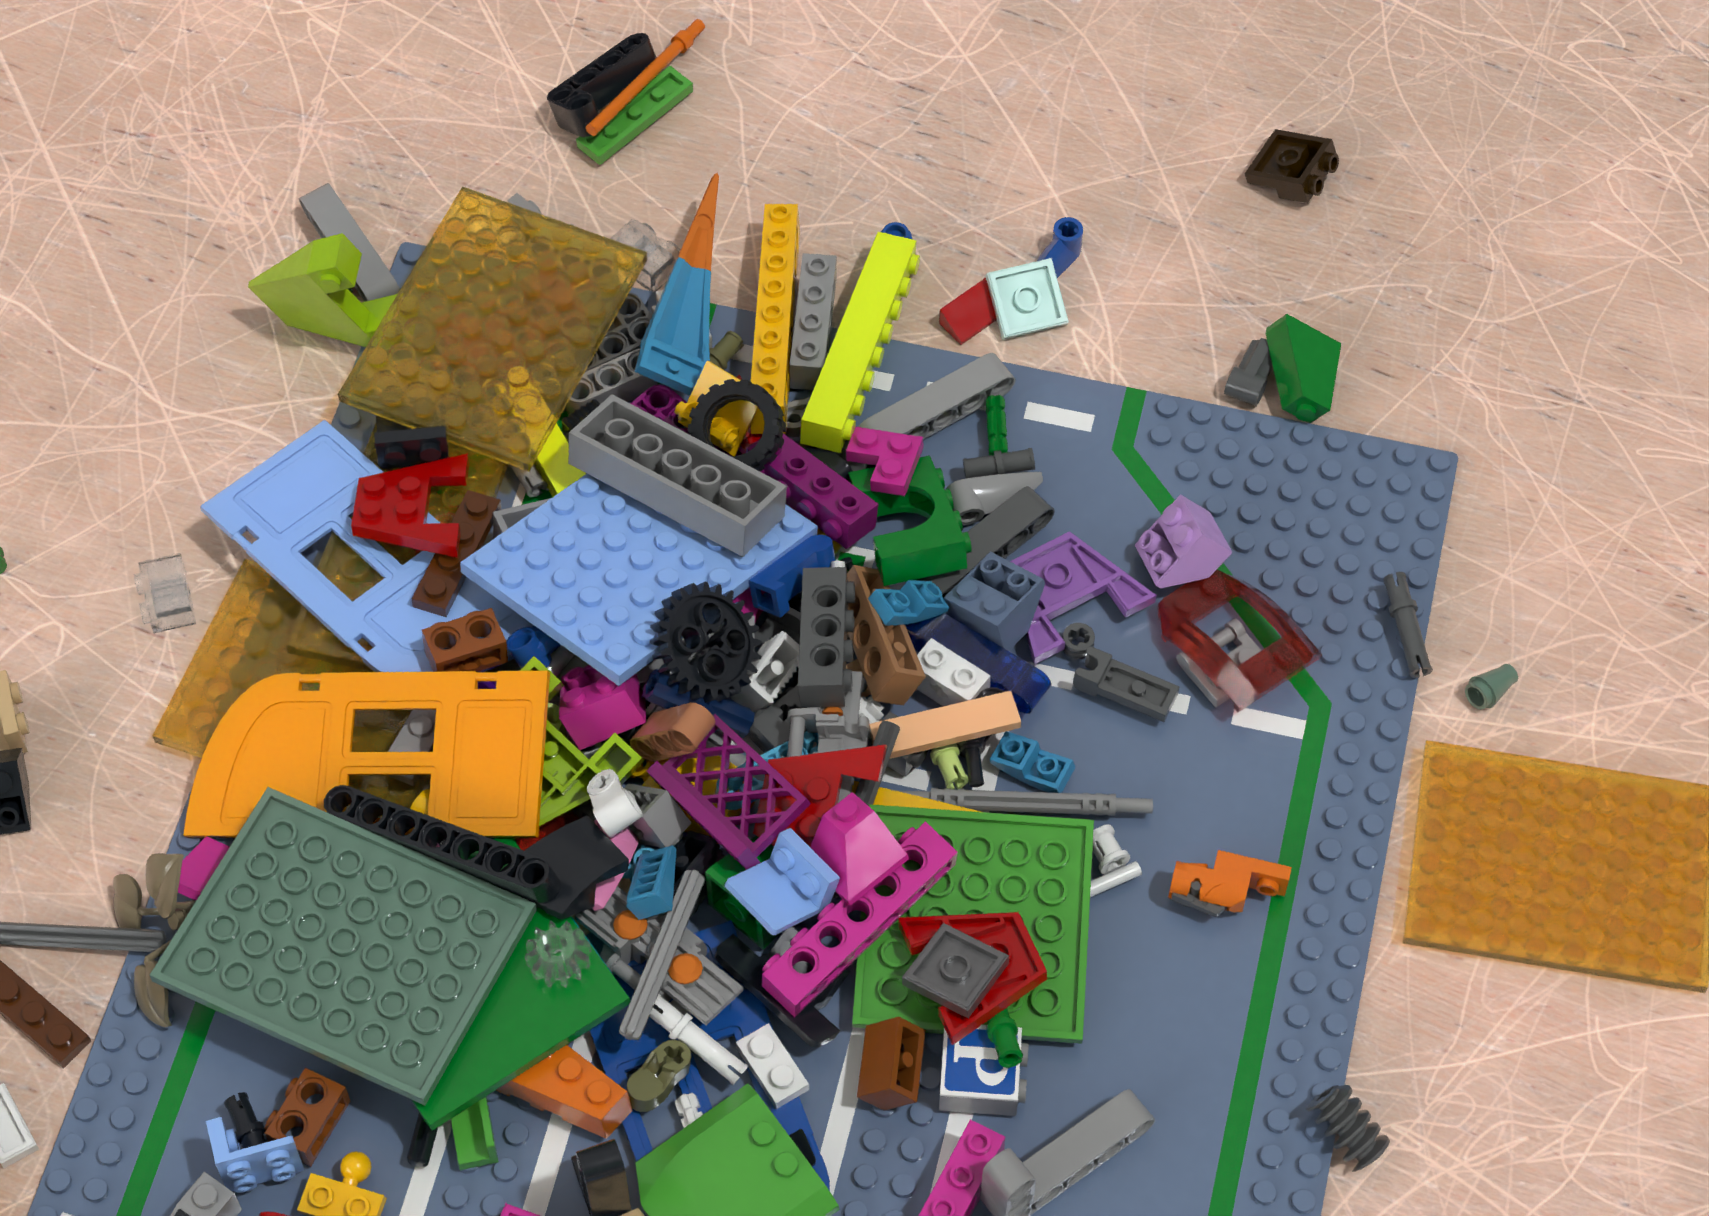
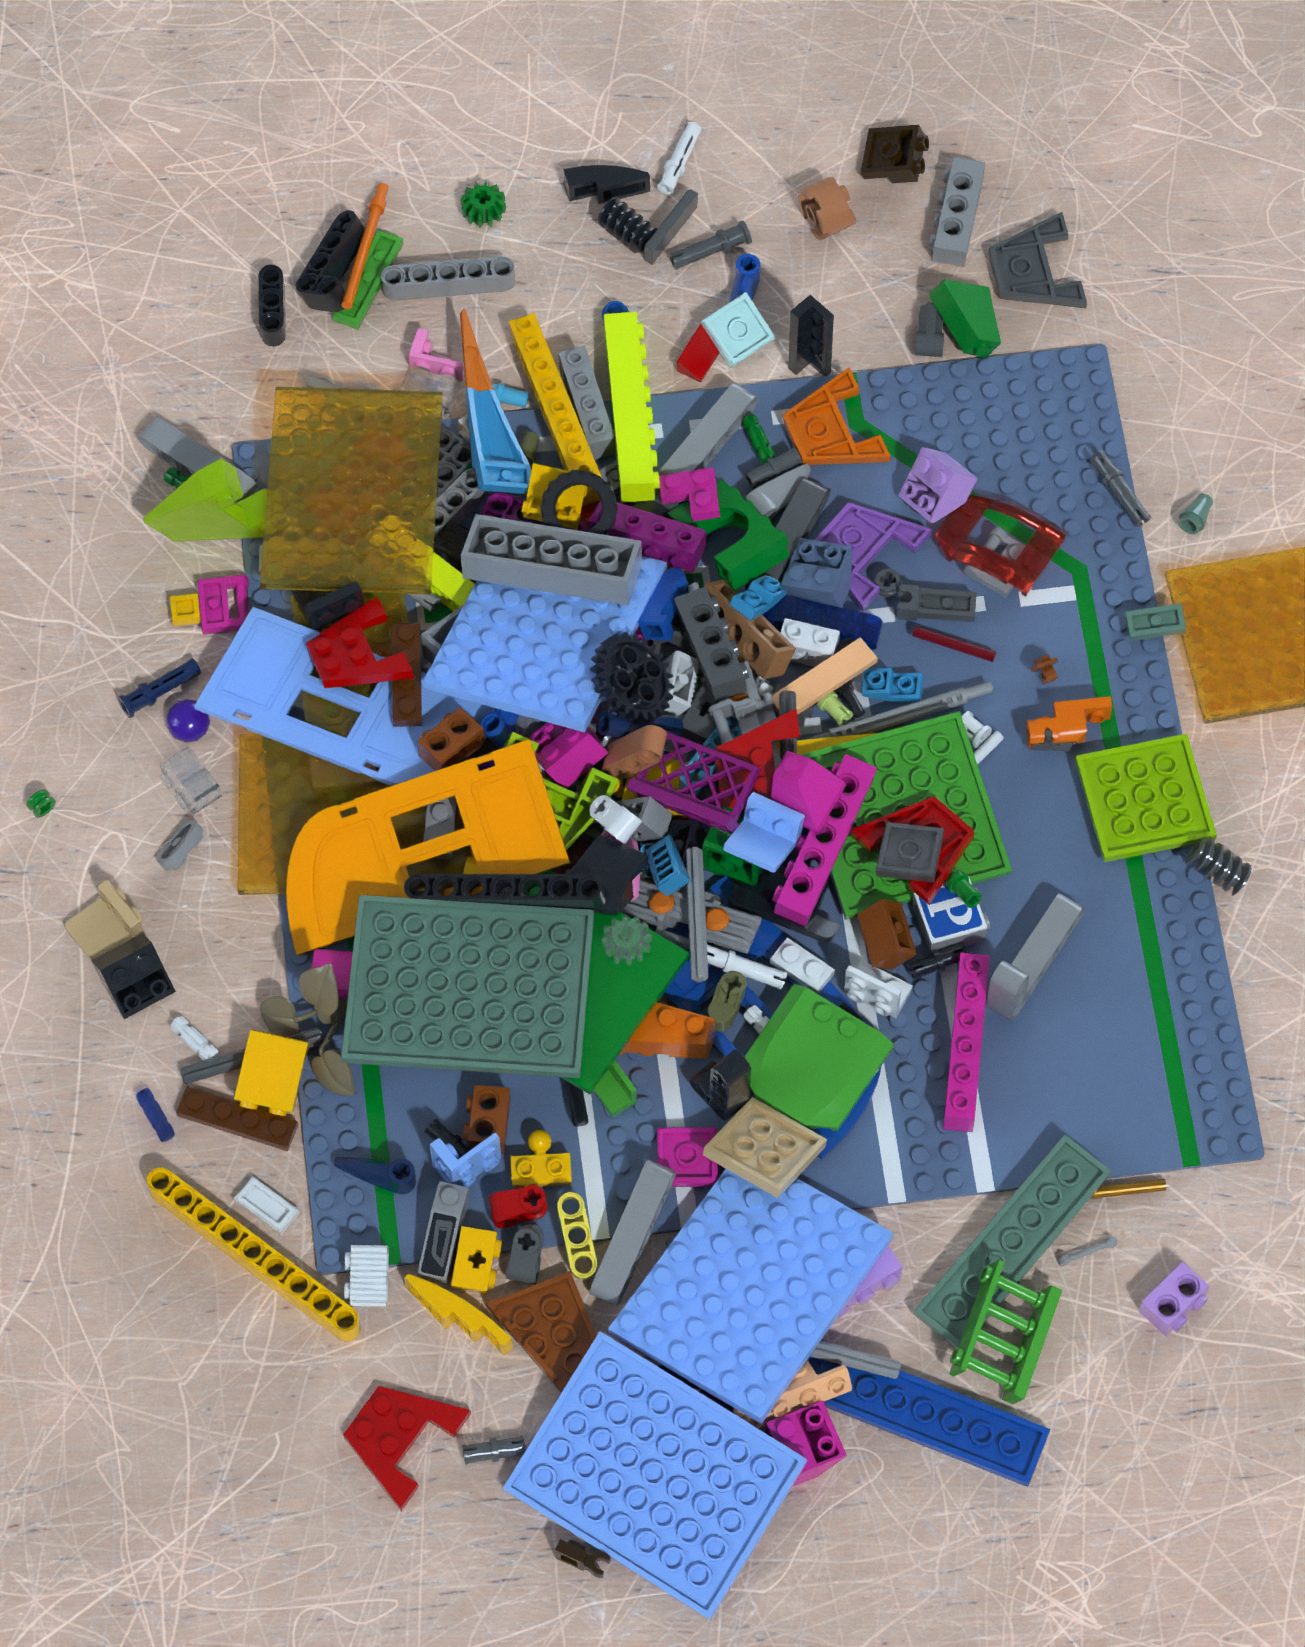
camera: 20 degrees left, 5 degrees up
(20, 892) = (193, 1038): none -> white axle
(81, 964) = (271, 1072): none -> yellow brick
(105, 670) = (179, 845): none -> light grey plate
(151, 1135) = (380, 1172): none -> dark blue piece
(169, 480) = (148, 693): none -> dark blue pin
(194, 528) = (186, 722): none -> dark purple hair
(258, 402) = (185, 609): none -> yellow plate
(295, 404) = (215, 606): none -> dark pink plate
(515, 108) = (272, 316): none -> black beam
(655, 210) = (421, 356): none -> bright pink bracket
(723, 140) = (436, 272): none -> light grey beam
(726, 283) = (511, 395): none -> medium azure pin
(799, 75) = (483, 204): none -> green gear
(852, 1126) = (876, 988): none -> white bracket
(940, 1119) = (936, 961): none -> black pin
(947, 94) = (605, 182): none -> black slope
(950, 146) = (624, 225): none -> black piece
(1000, 163) = (670, 226): none -> dark grey tile
(1020, 114) = (675, 167): none -> white pin
(1051, 198) = (722, 241): none -> dark grey pin
(1073, 440) = (821, 432): none -> orange wing
(1099, 326) = (810, 337): none -> black fence
(1129, 740) = (954, 644): none -> dark red bar
(1185, 196) = (826, 207): none -> nougat brick
(1227, 802) = (1045, 668): none -> dark orange plate
(1288, 1008) = (1145, 797): none -> lime plate
(1341, 250) = (954, 248): none -> light grey brick
(1386, 797) = (1155, 622): none -> sand green hinge
(1394, 337) = (1024, 270): none -> dark grey wing

